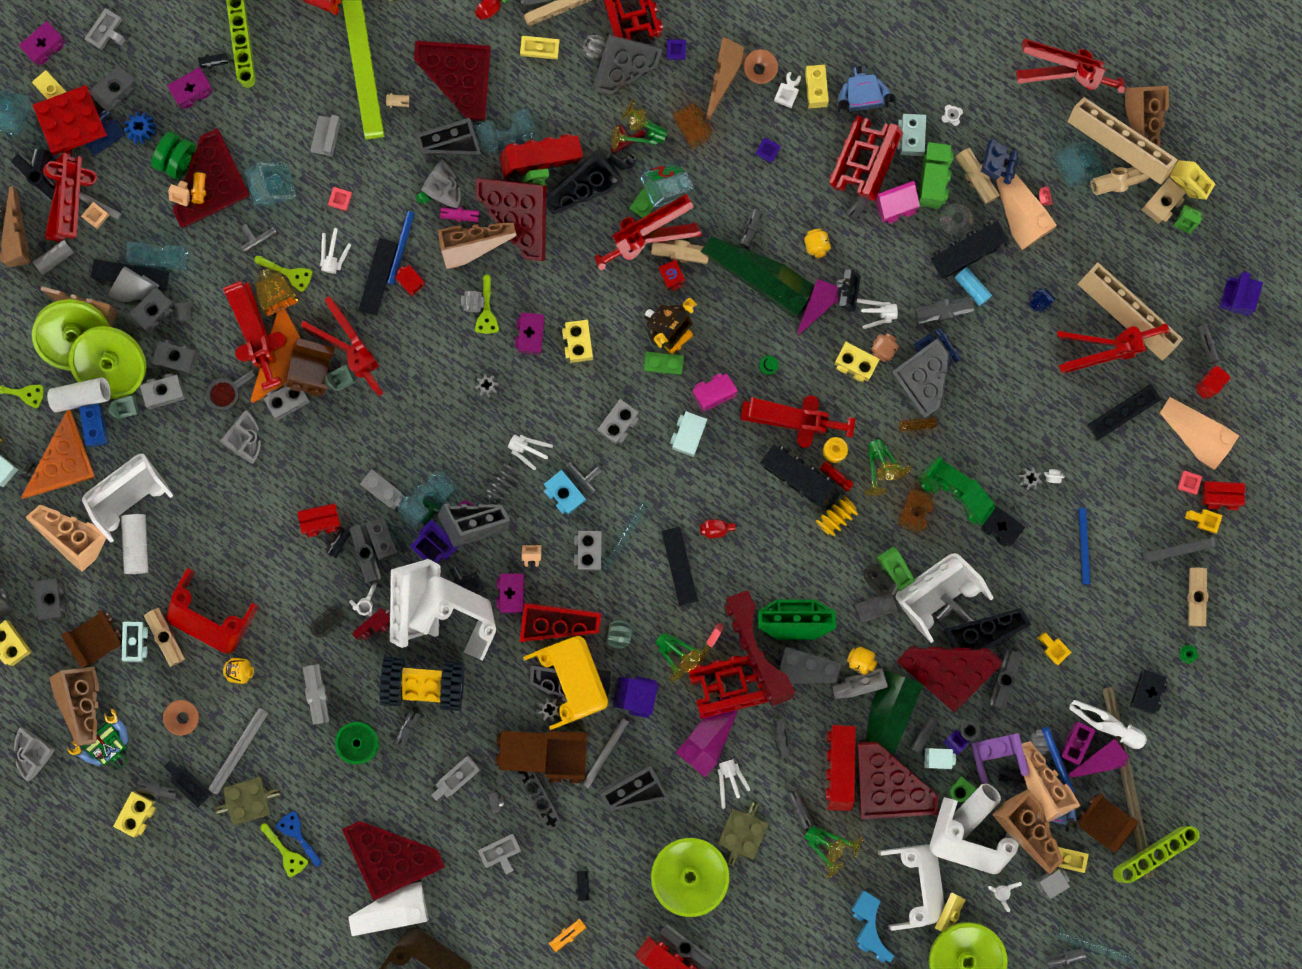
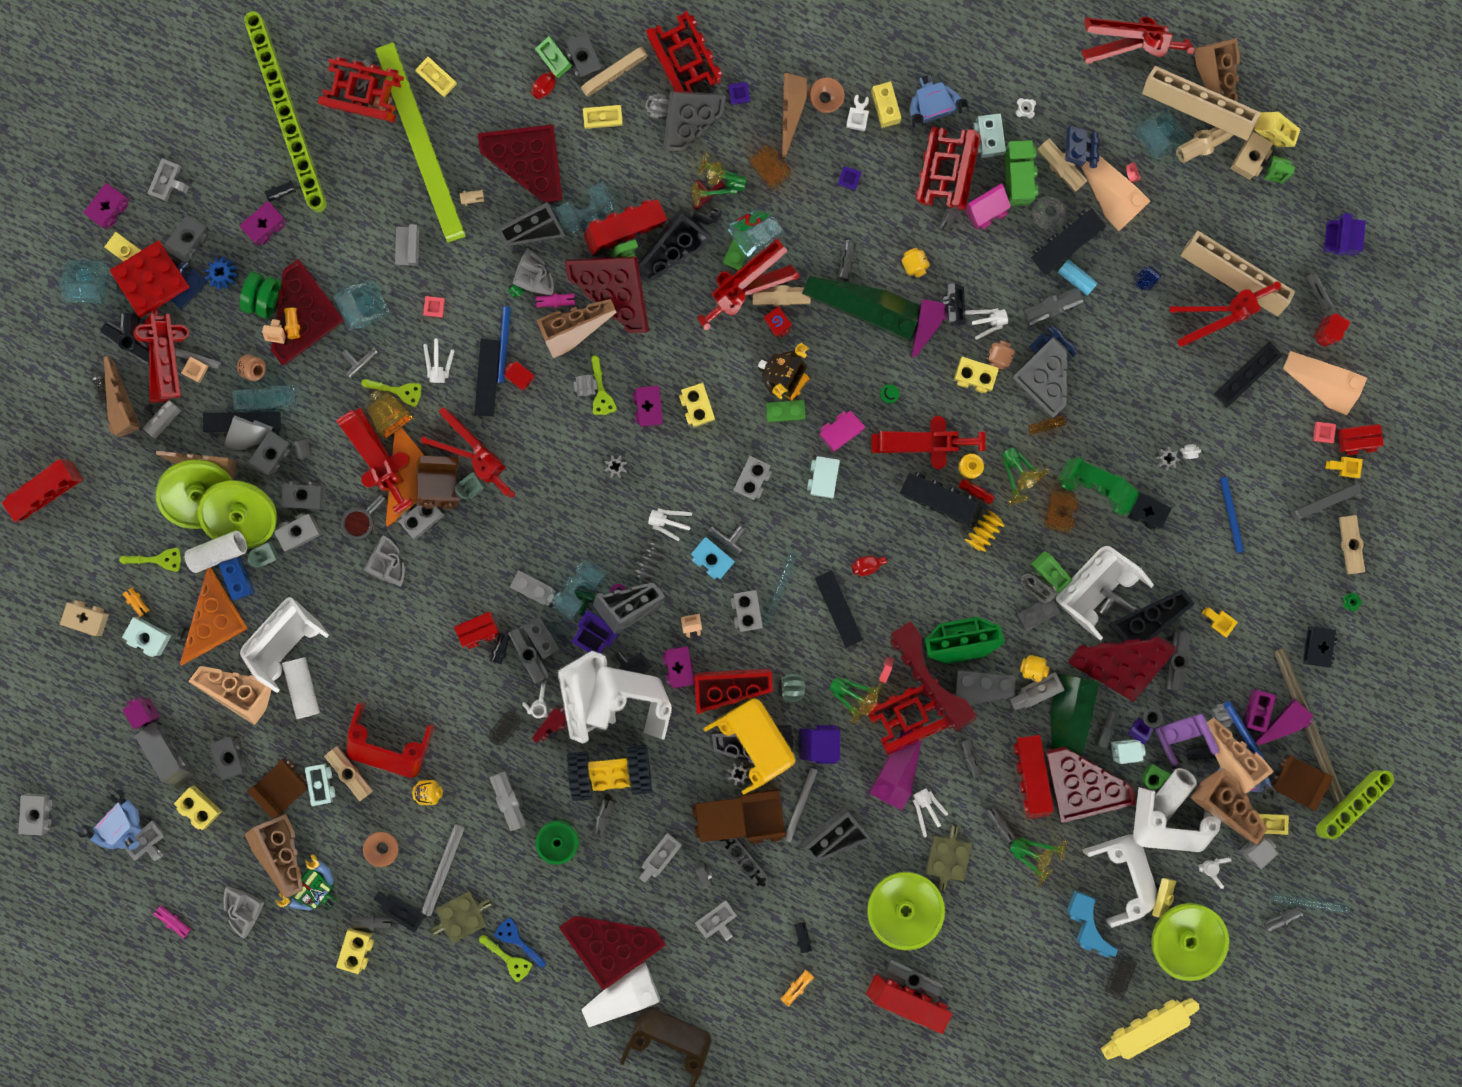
camera: 10 degrees left, 5 degrees up
(150, 223) = (251, 367): none -> nougat head
(1130, 736) = (1310, 694): white arm -> none

